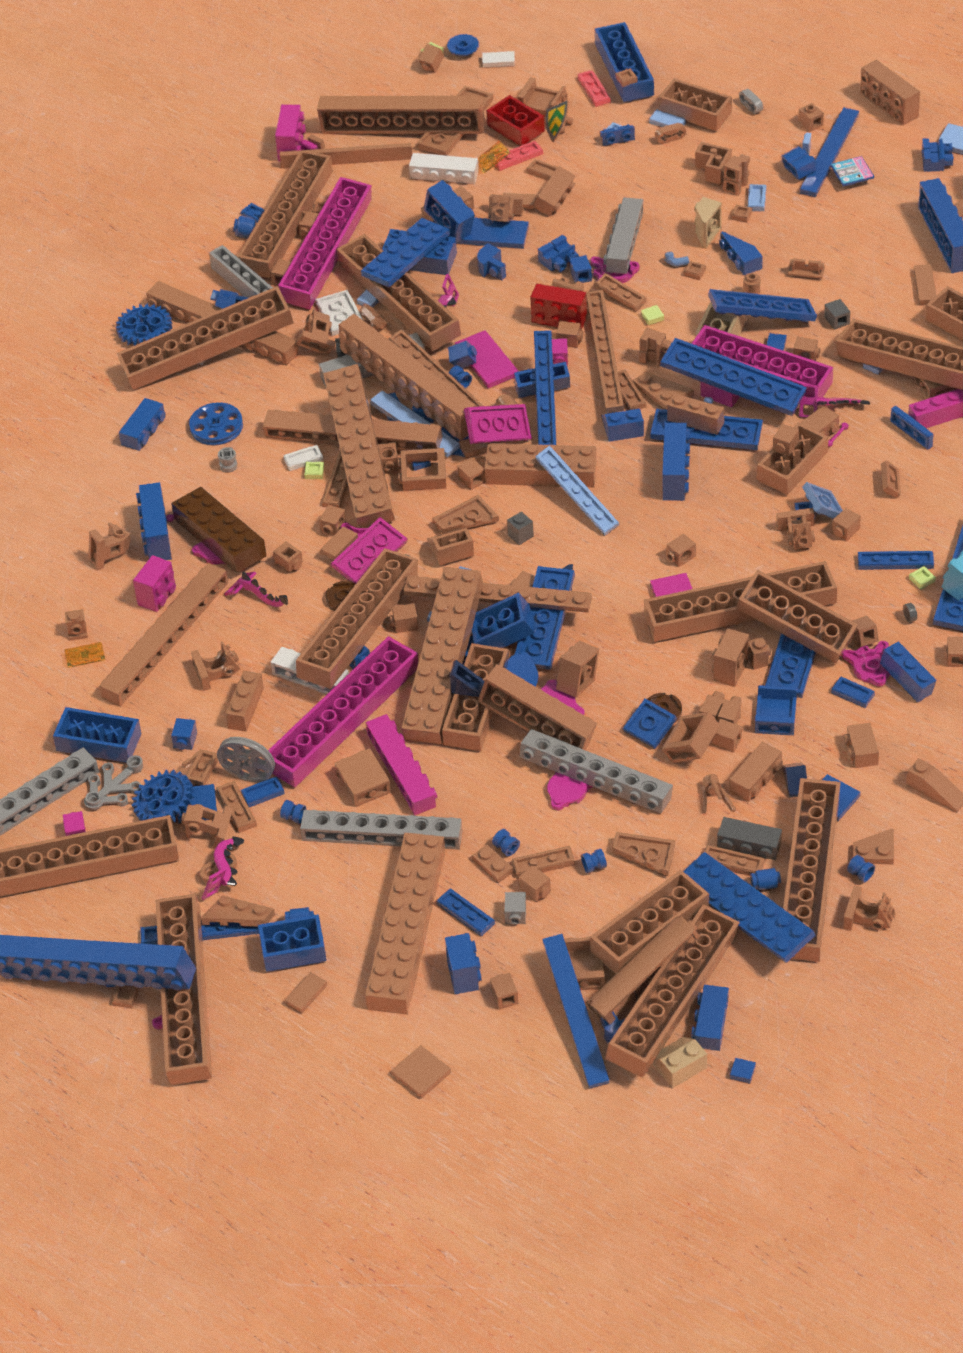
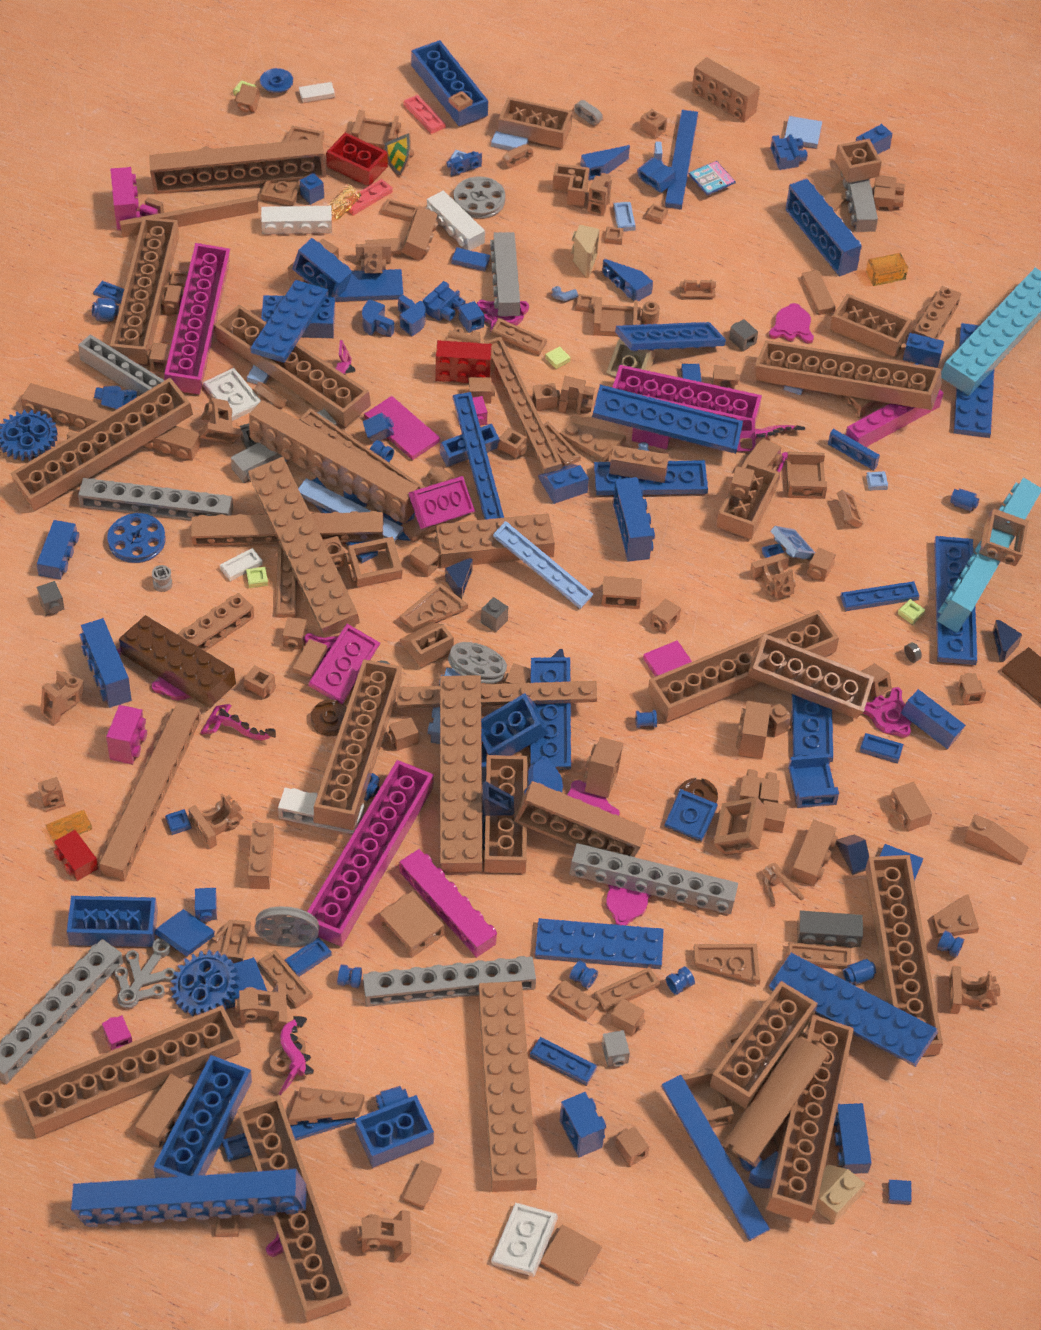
camera: 20 degrees left, 5 degrees up
(82, 678) = (75, 855): none -> red brick
(97, 895) = (163, 1111): none -> nougat brick
(123, 463) = (50, 598): none -> dark grey brick
(130, 903) = (204, 1120): none -> blue brick
(158, 754) = (184, 932): none -> blue tile
(181, 664) = (178, 822): none -> blue tile
(237, 392) = (152, 500): none -> light grey brick
(267, 503) = (219, 622): none -> nougat brick
(268, 1031) = (401, 1234): none -> nougat tile
(382, 1051) = (524, 1239): none -> white tile
(466, 142) = (311, 188): none -> blue brick
(491, 564) = (477, 662): none -> light grey wedge
(499, 491) = (458, 576): none -> dark blue slope
(525, 263) = (413, 315): none -> blue brick
(530, 819) = (599, 943): none -> blue plate
(587, 385) = (512, 443): none -> nougat brick
(592, 185) = (456, 221): none -> white brick
(597, 220) = (470, 259): none -> blue tile
(622, 166) = (485, 194): none -> light grey wedge
(628, 347) = (545, 396): none -> nougat brick
(634, 636) = (646, 719): none -> blue bush
(646, 524) = (621, 592): none -> nougat brick
(715, 281) = (609, 316): none -> nougat panel
(753, 144) = (604, 160): none -> blue slope
(789, 198) = (656, 213): none -> nougat tile
(858, 444) = (806, 475): none -> nougat panel
(889, 309) = (792, 323): none -> dark pink tile
(927, 458) = (877, 481): none -> light blue tile

